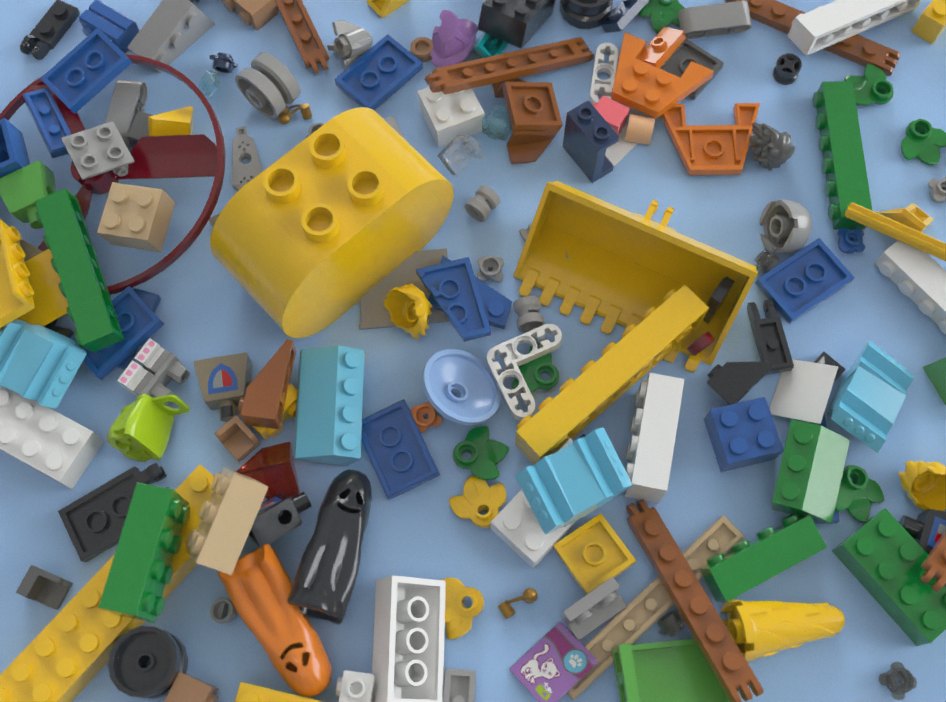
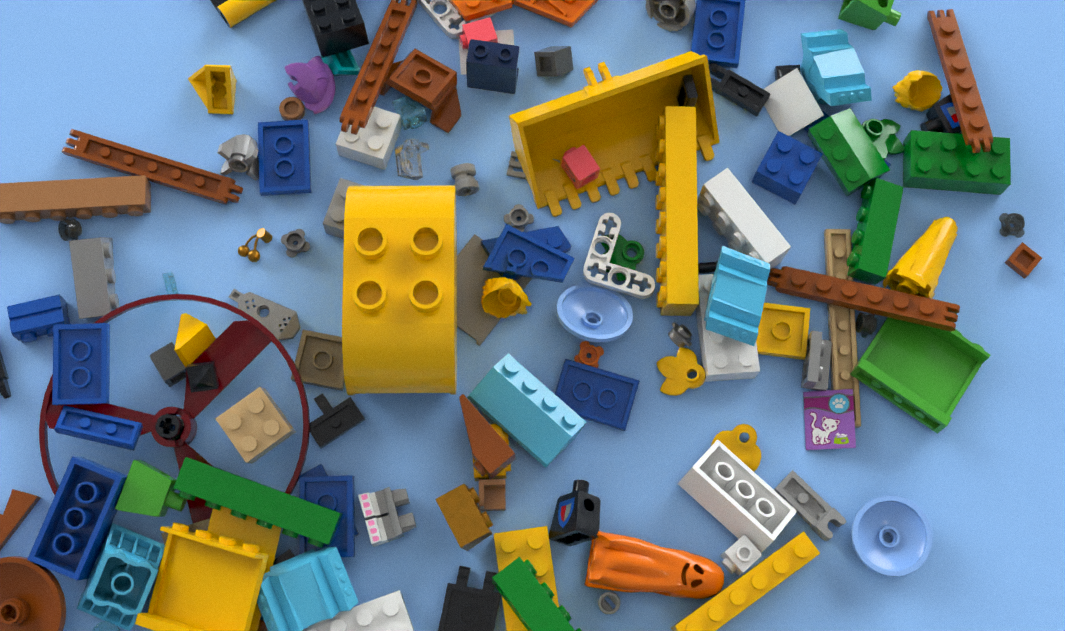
camera: 55 degrees left, 5 degrees up
(98, 151) = (171, 409): light grey hinge -> none
(125, 103) = (136, 368): light grey beam -> none
(144, 151) = (202, 376): none -> black tile
(145, 427) = (424, 554): lime piece -> none
(191, 428) = (464, 516): none -> pearl gold slope
(200, 276) = (334, 420): none -> black plate
(223, 62) = (161, 259): dark blue plate -> none
(224, 382) = (438, 469): dark tan torso -> none
(226, 520) = (562, 542): tan brick -> none
(268, 85) = (223, 243): light grey wheel -> none
(275, 469) = (536, 490): clear red slope -> none
(334, 551) = (634, 490): black piece -> none
(484, 453) = (650, 340): green plate -> none
(507, 471) = (680, 335): none -> flat silver plate
(528, 313) = (578, 223): light grey wheel -> none
(529, 596) = (772, 395): pearl gold piece -> none
(575, 273) = (580, 166): none -> coral brick
(639, 129) = (507, 25): light nougat brick -> none
(645, 184) = (553, 61): none -> dark grey panel
(701, 343) = (703, 135): dark red tile -> none
(736, 379) = (748, 136): black slope -> none
(766, 260) = (682, 39): clear smoke plate -> none

